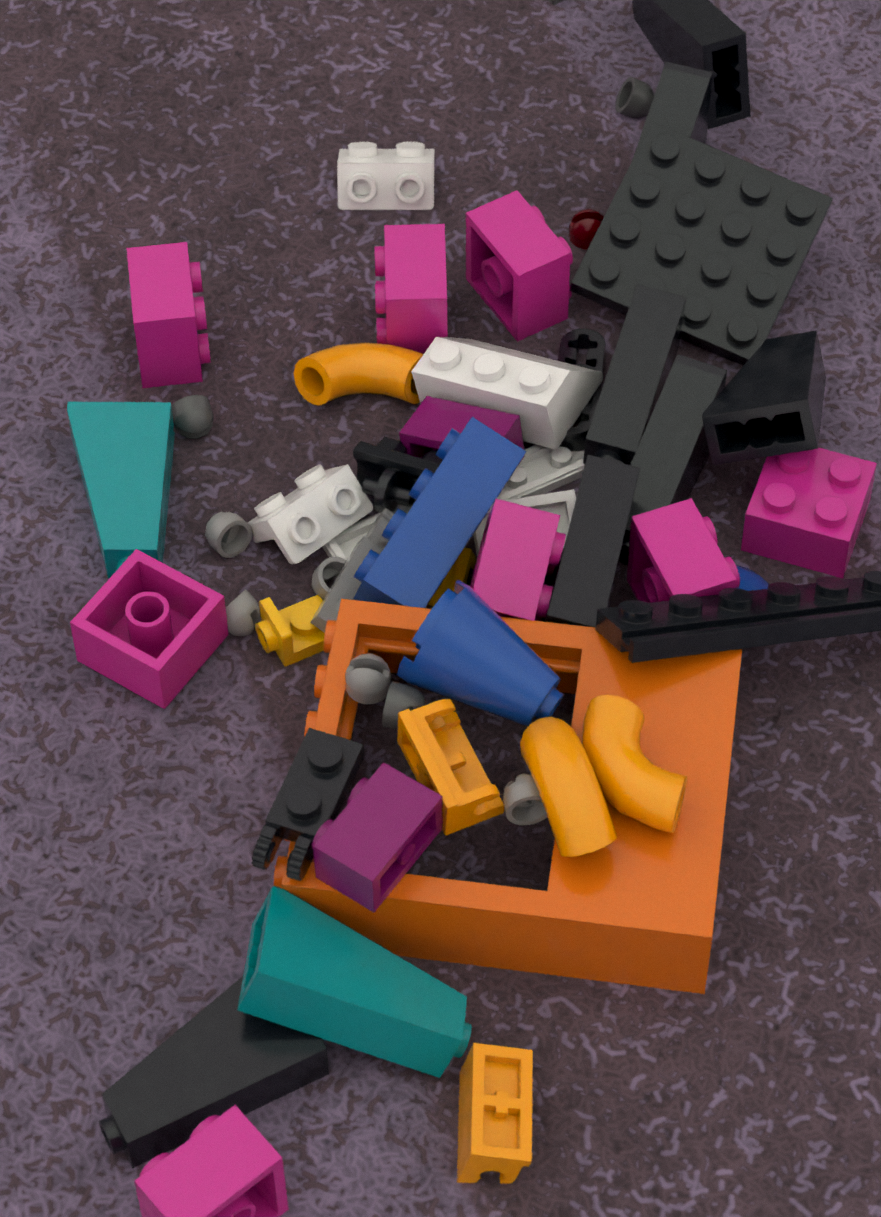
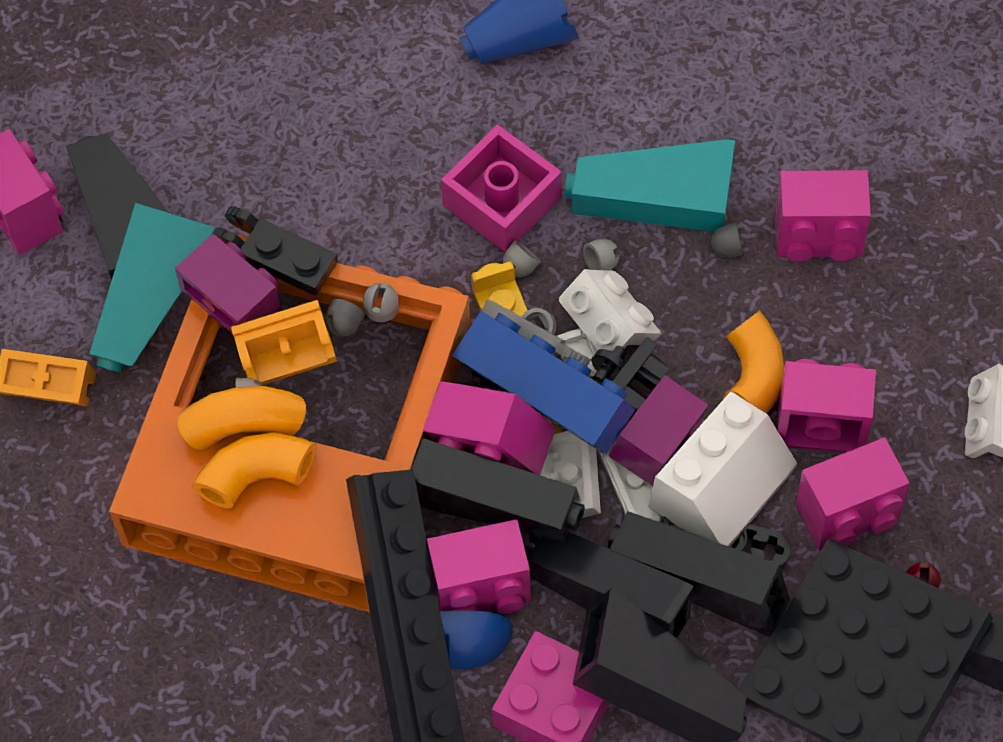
camera: 100 degrees right, 10 degrees up
(480, 661) = (363, 368): blue cone -> none

